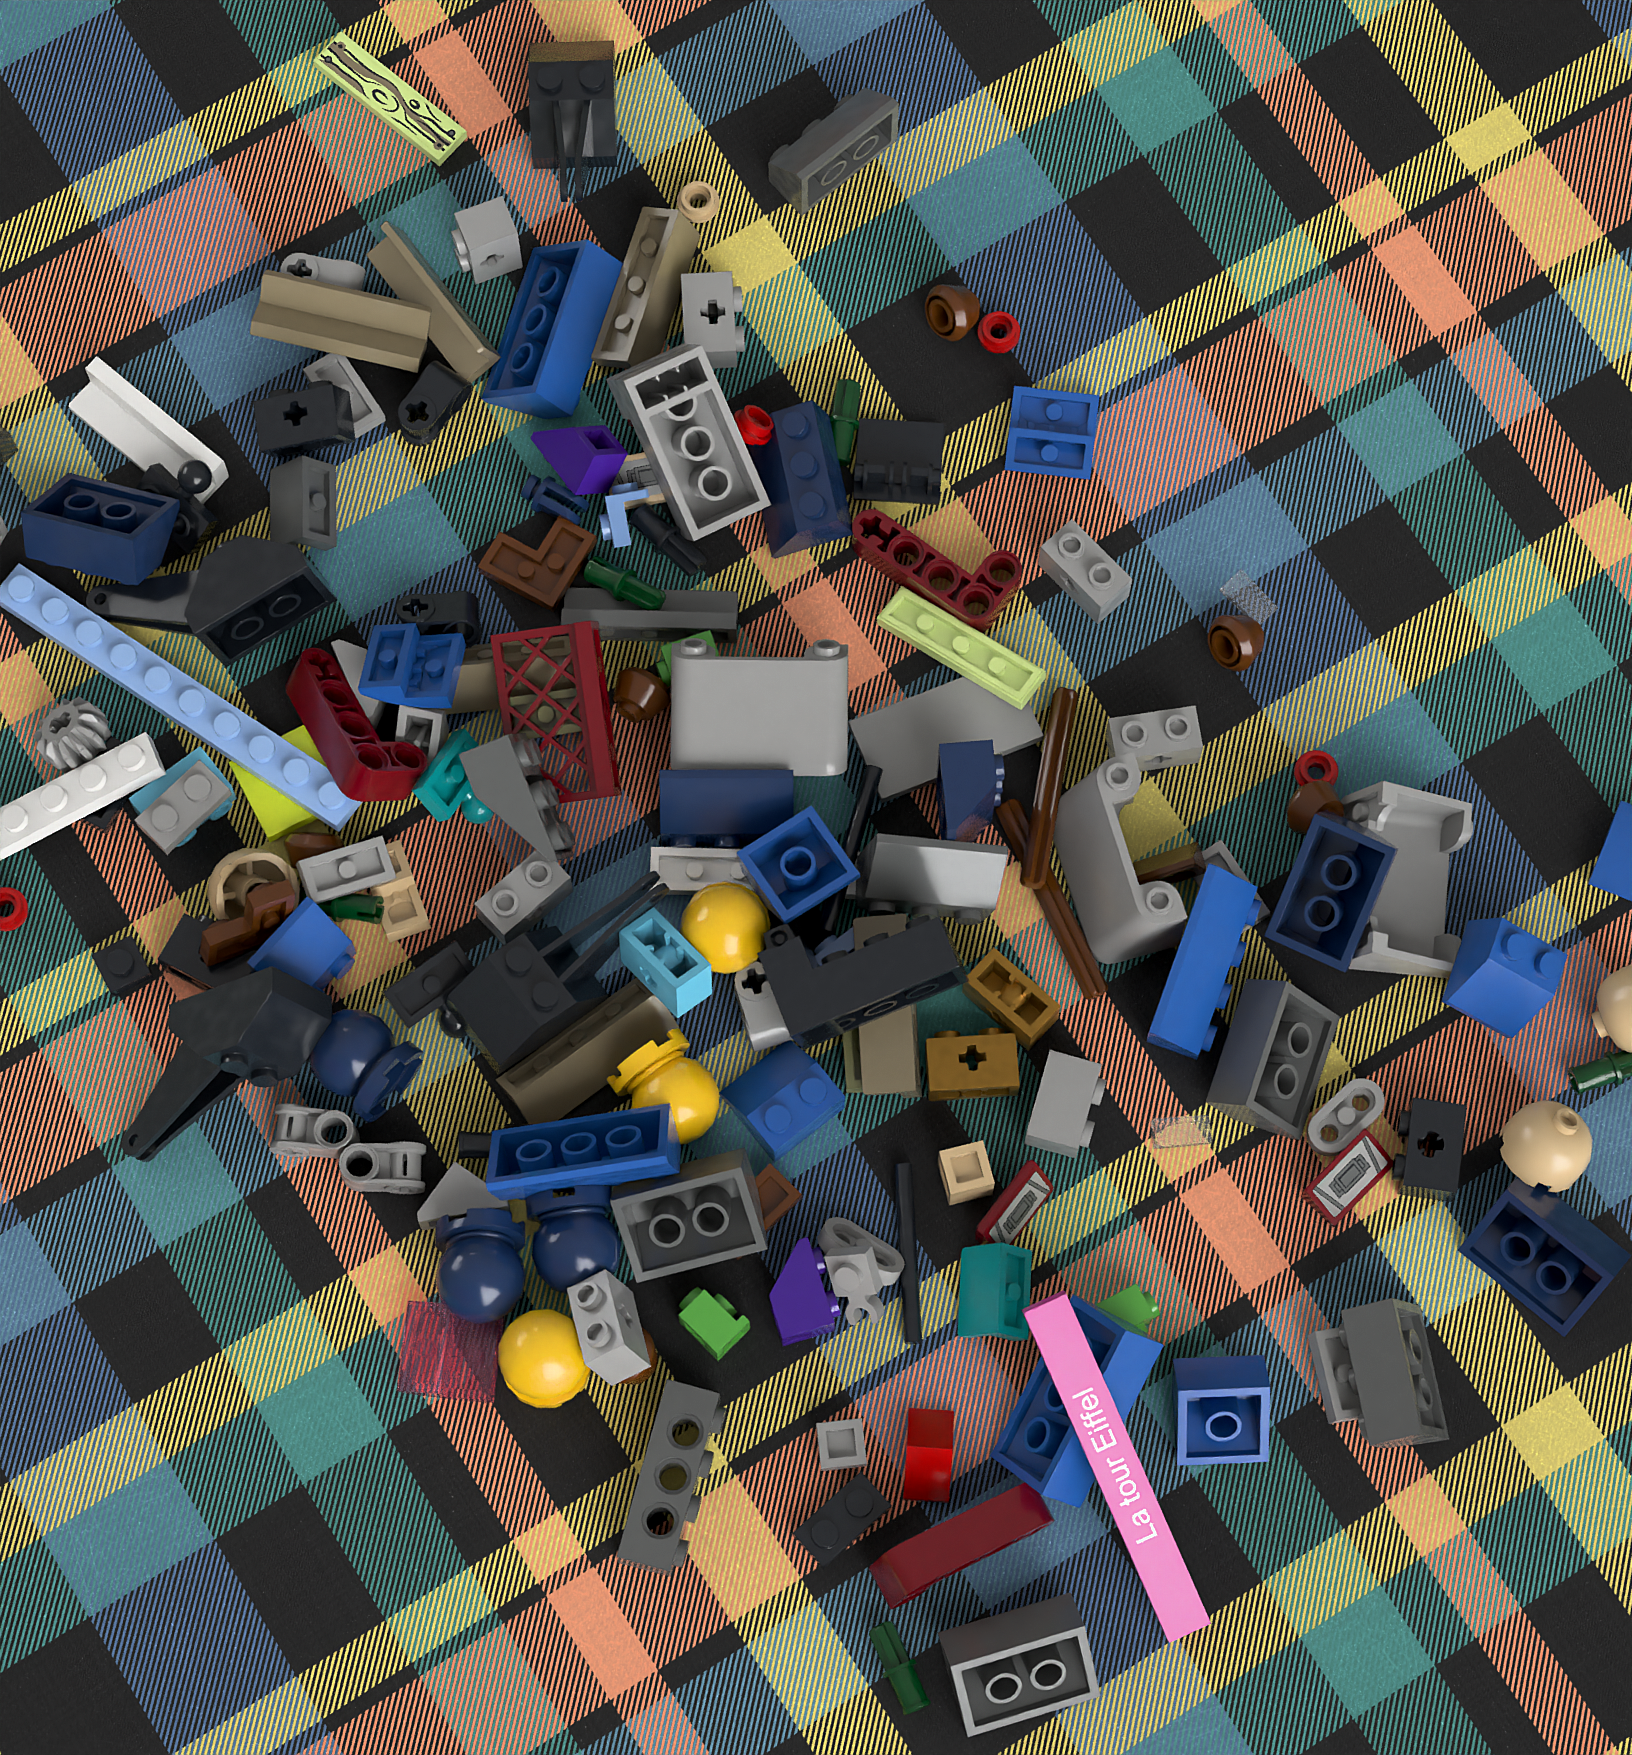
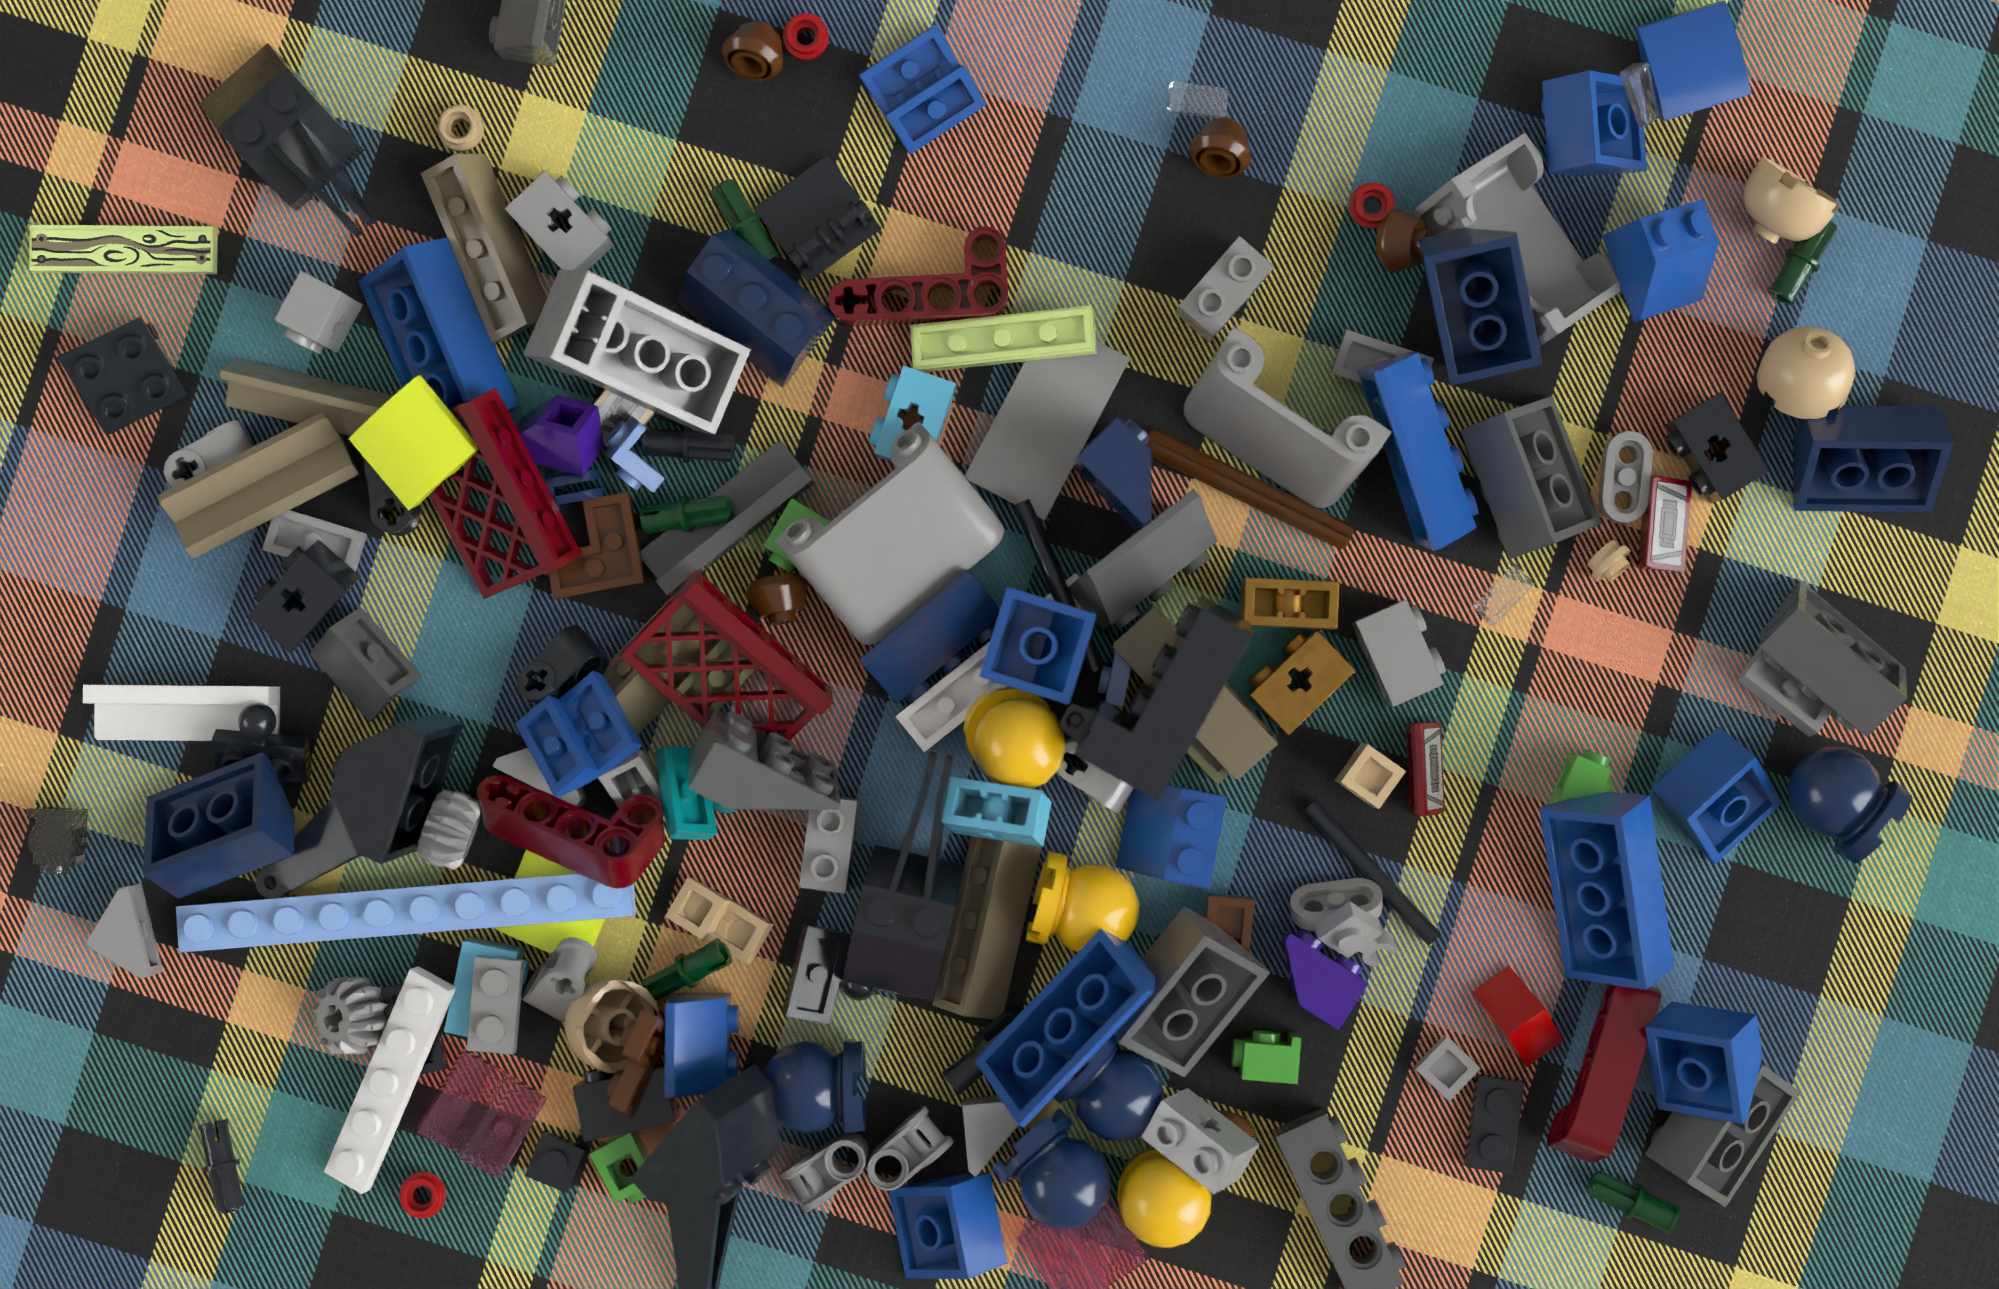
camera: 35 degrees left, 15 degrees up
(100, 887) = (481, 1113): none -> clear pink slope
(162, 991) = (608, 1161): none -> bright green brick
(246, 830) = (561, 977): none -> light grey piece
(260, 663) = (449, 829): none -> light grey gear
(309, 844) = (629, 946): reddish brown cone -> none
(314, 178) = (123, 375): none -> black hinge
(346, 870) = (672, 946): light grey plate -> none
(366, 1248) = (948, 1227): none -> blue slope
(476, 374) = (414, 442): none -> neon yellow slope
(522, 459) = (515, 483): none -> dark red fence
(754, 425) = (680, 295): red plate -> none
(867, 634) = (912, 389): none -> medium azure brick
(993, 1291) = (1466, 848): teal panel -> none
(1041, 1589) = (1704, 1060): none -> blue slope
(1048, 788) = (1172, 400): reddish brown axle -> none
(1084, 571) = (1050, 190): light grey brick -> none
(1116, 1466) = (1686, 920): tile -> none
(1171, 865) = (1322, 386): reddish brown slope -> none
(1281, 1168) = (1609, 561): none -> tan plate
(1315, 1481) = (1843, 798): none -> dark blue tile
(1532, 844) = (1591, 126): none -> blue slope
(1586, 849) = (1640, 92): none -> clear piece

